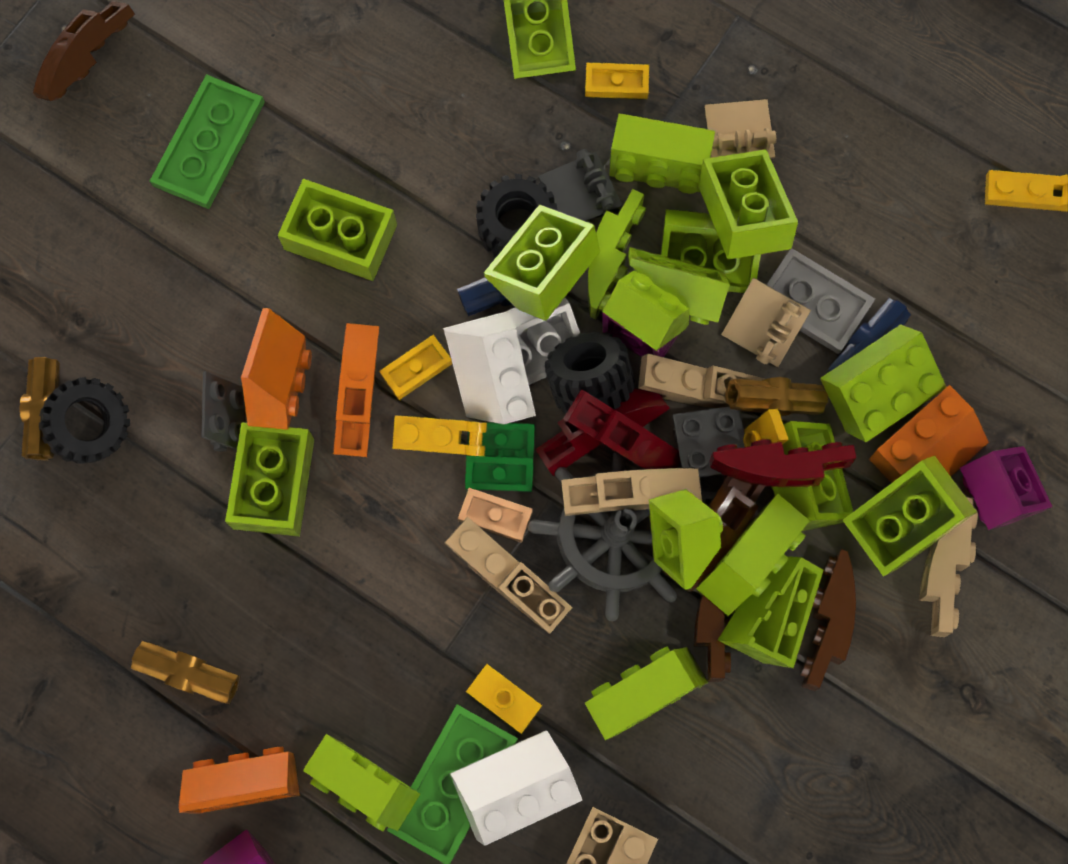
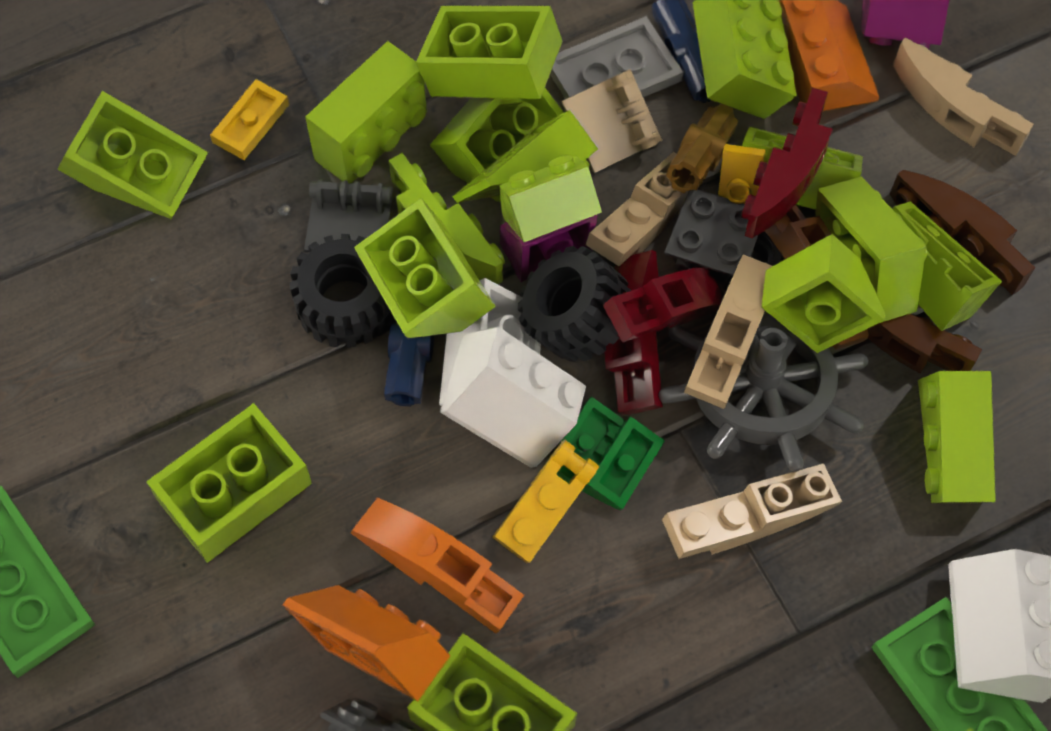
camera: 65 degrees left, 10 degrees down
(416, 367) = (448, 486): yellow plate -> none
(496, 514) = (671, 489): light nougat plate -> none
(504, 699) = (888, 593): yellow plate -> none
(740, 127) = (381, 24): tan hinge -> none
(909, 515) = (900, 93): lime brick -> none

